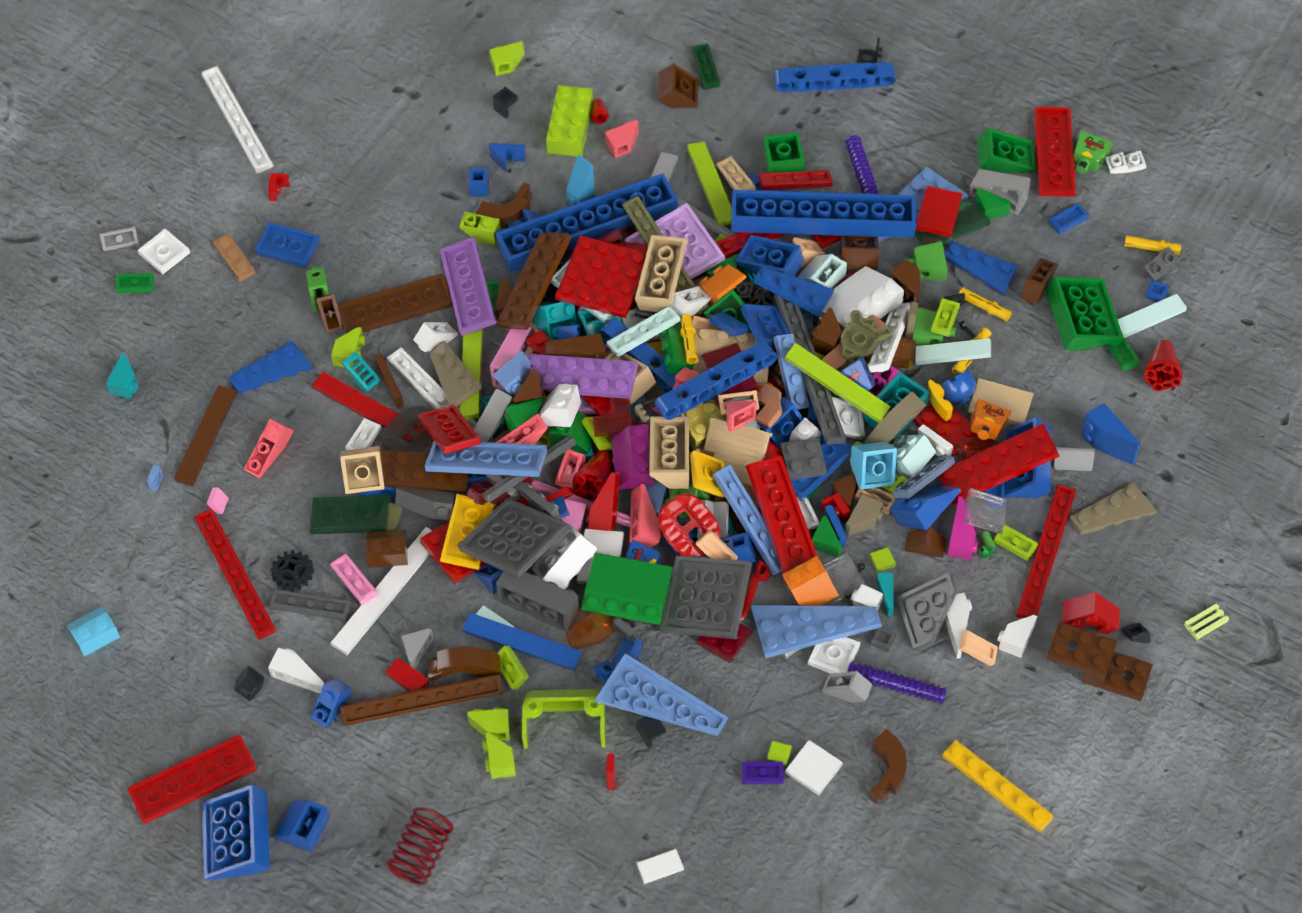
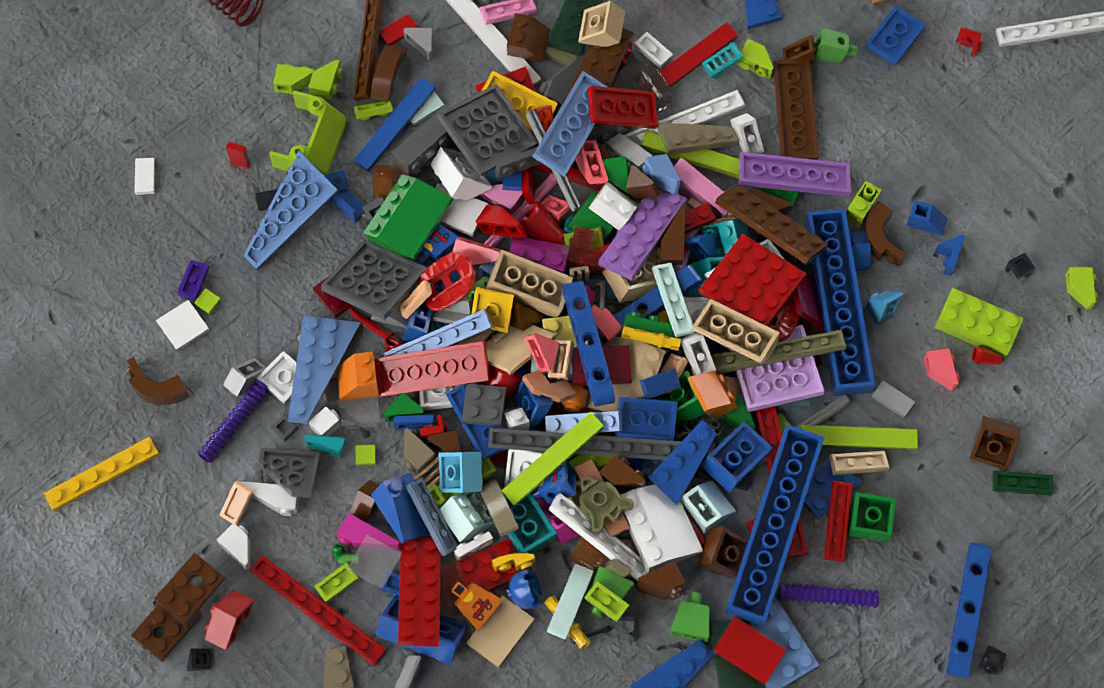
camera: 105 degrees right, 10 degrees up
(389, 380) = (708, 84): reddish brown tile -> none
(809, 249) = (744, 503): light nougat slope -> none
(987, 305) = (622, 659): yellow pin -> none

